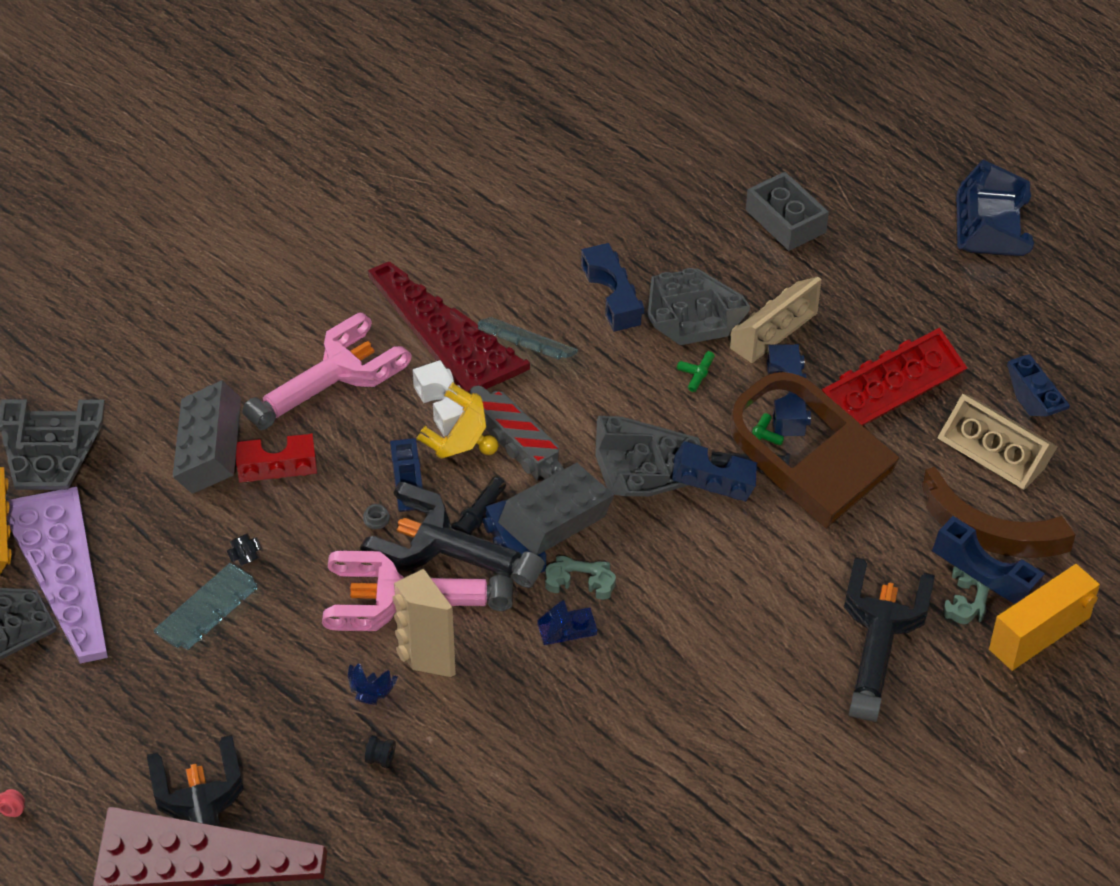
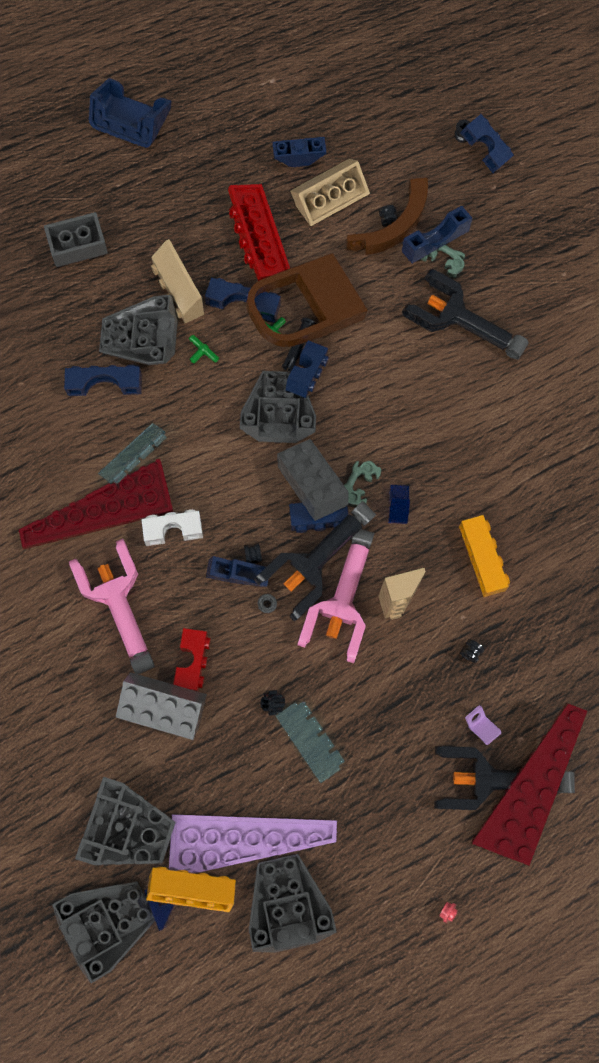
camera: 75 degrees left, 25 degrees up
(277, 788) = (482, 726): none -> lavender bracket
(370, 689) = (419, 646): clear blue piece -> none
(437, 482) = (253, 553): none -> black wheel
(467, 429) = (215, 519): yellow connector -> none
(473, 516) = (289, 538): black pin -> none
(519, 435) = (224, 486): dark grey hinge -> none
(524, 735) = (484, 556): none -> light orange brick
(998, 508) = (388, 215): none -> black wheel
(1044, 617) = (487, 221): light orange brick -> none

